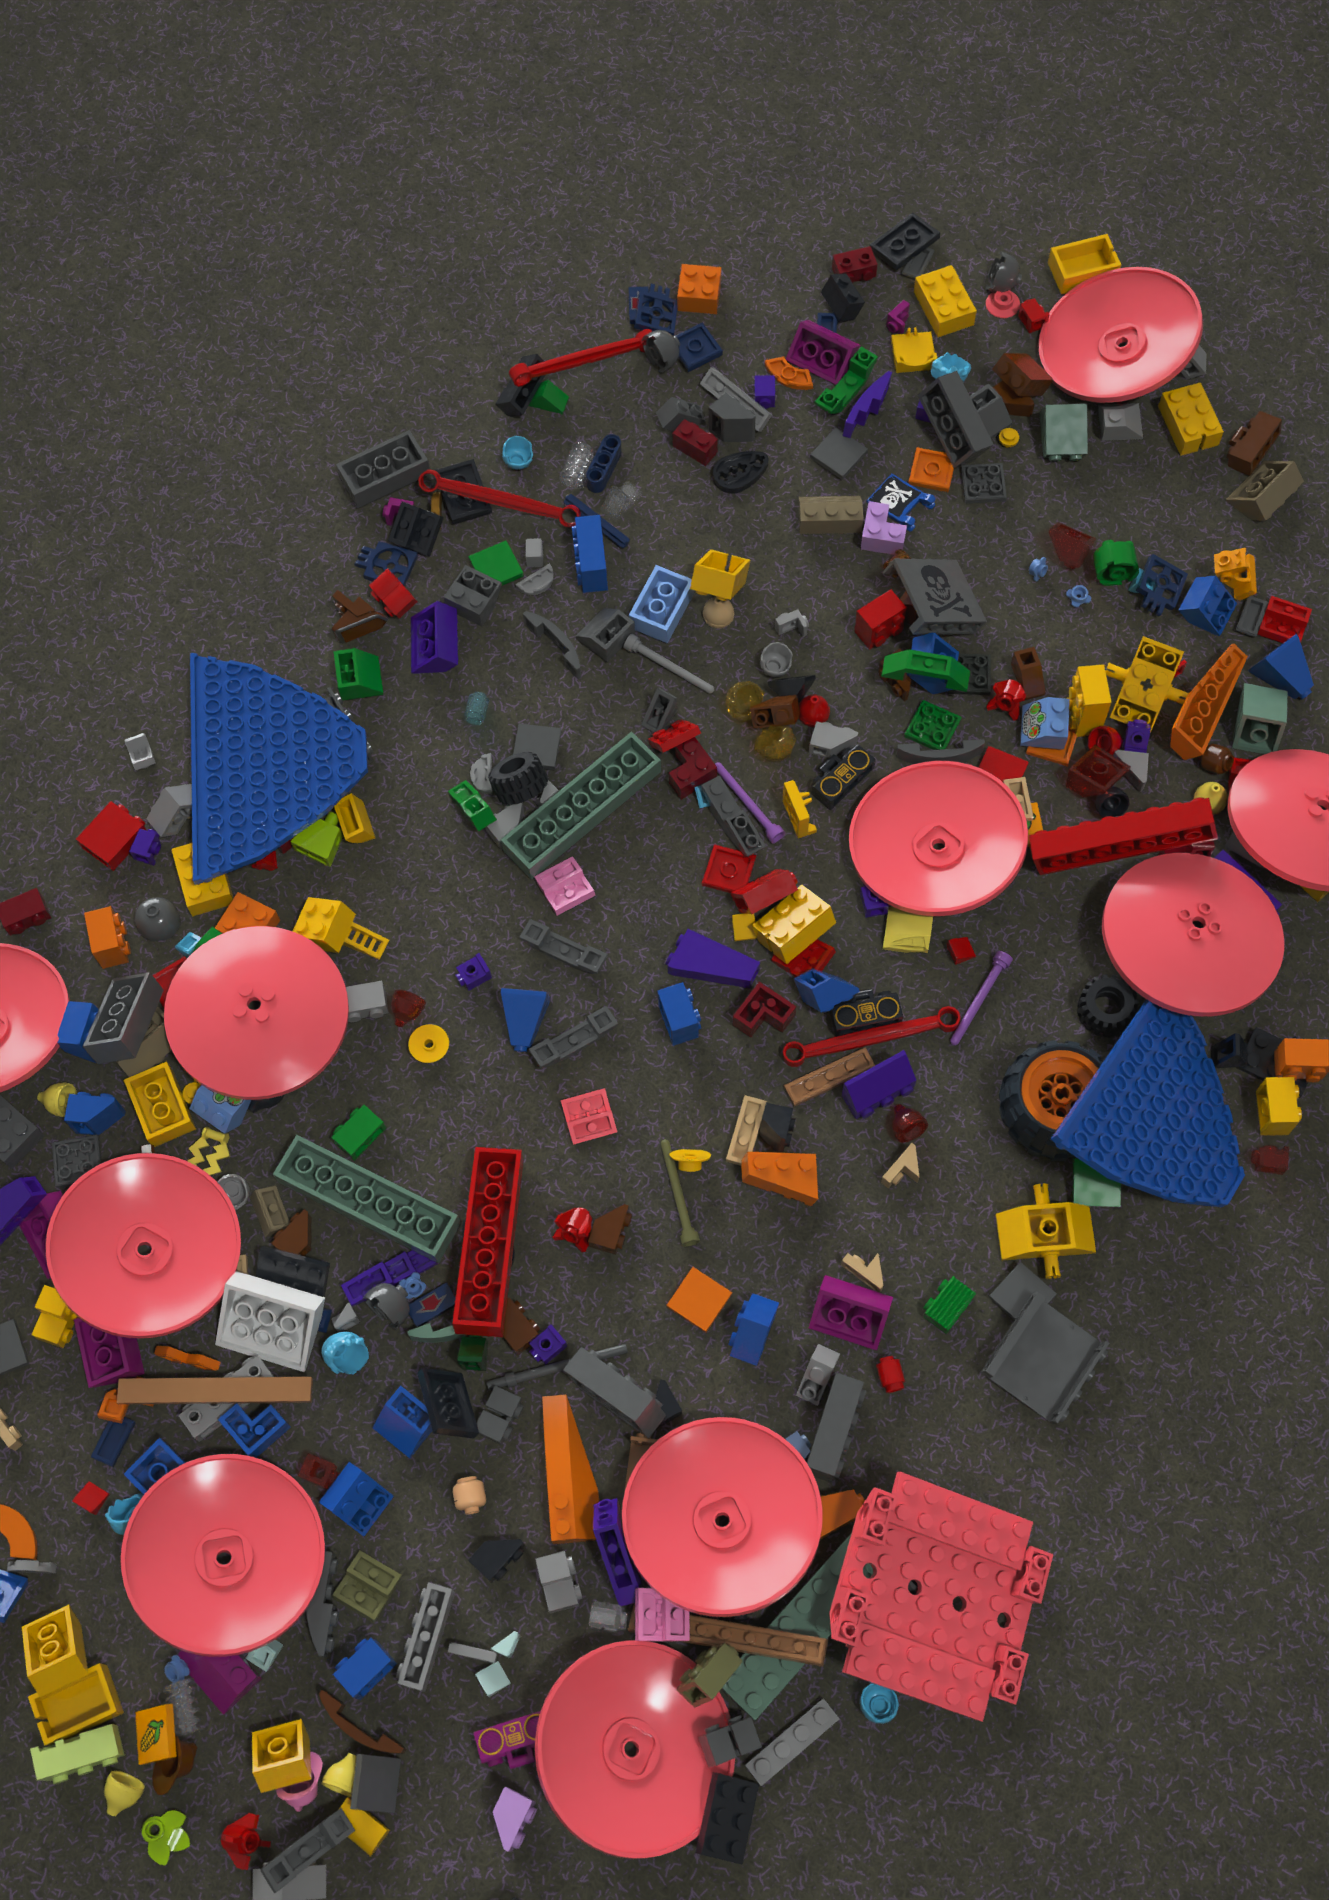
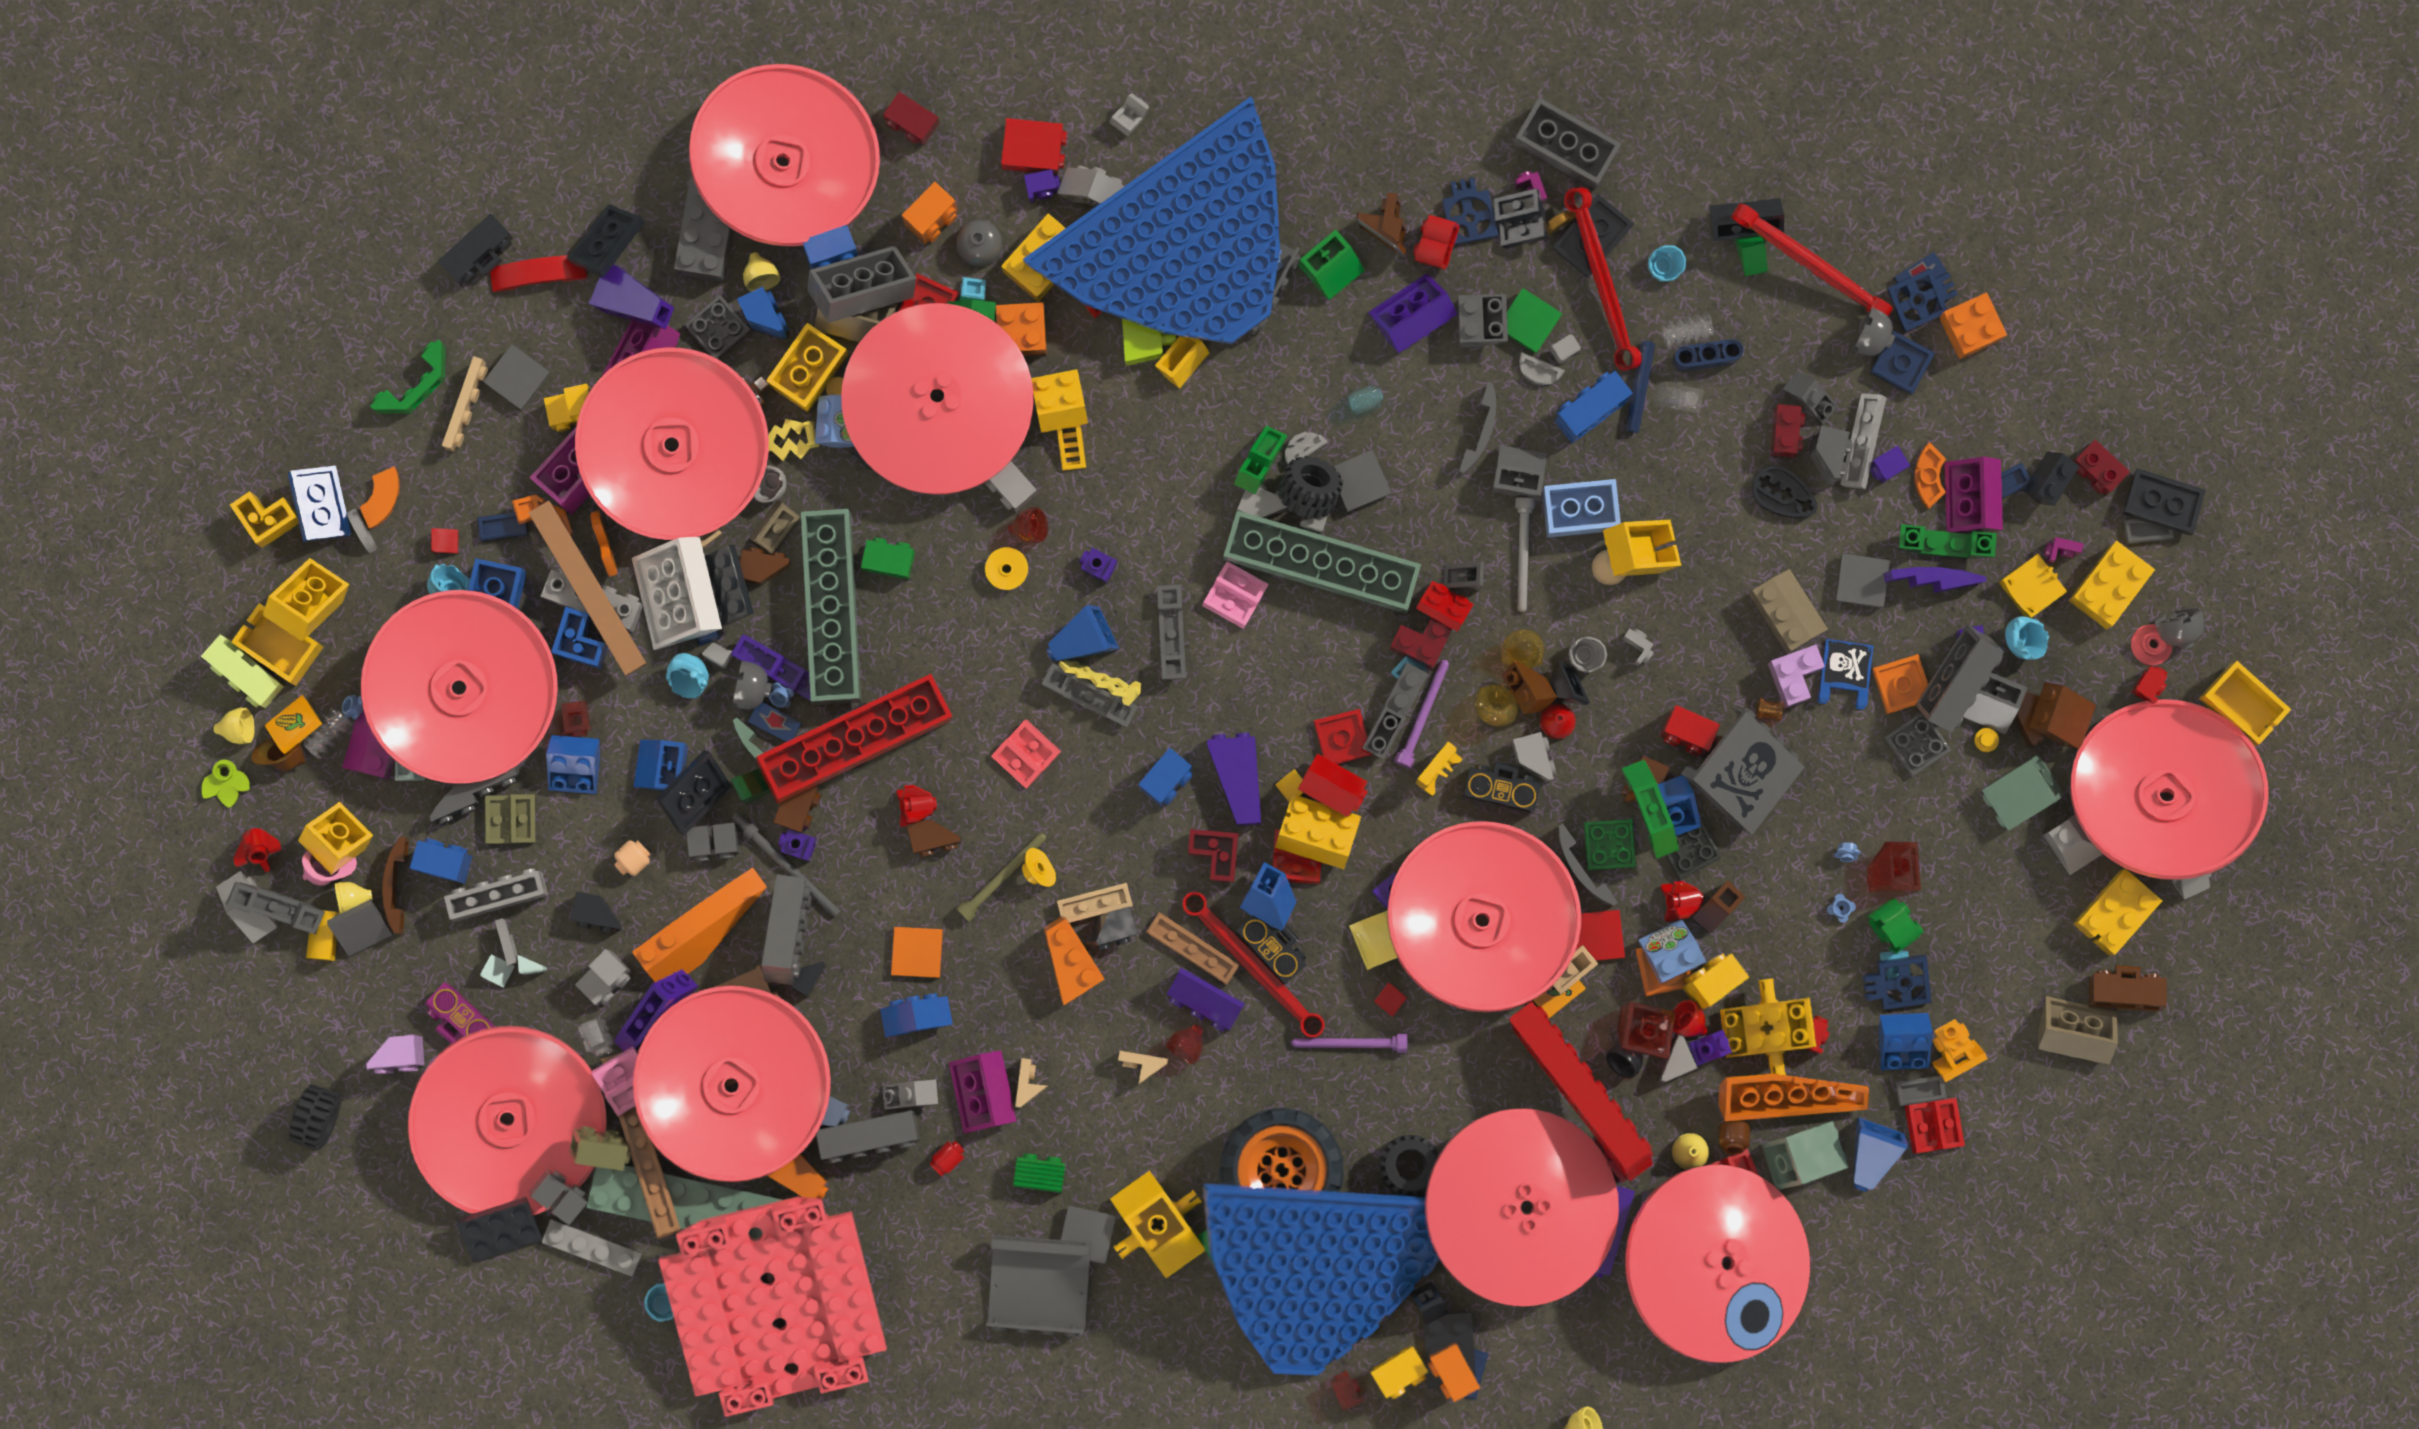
camera: 55 degrees right, 15 degrees up
(591, 1002) = (1083, 671): none -> light yellow piece

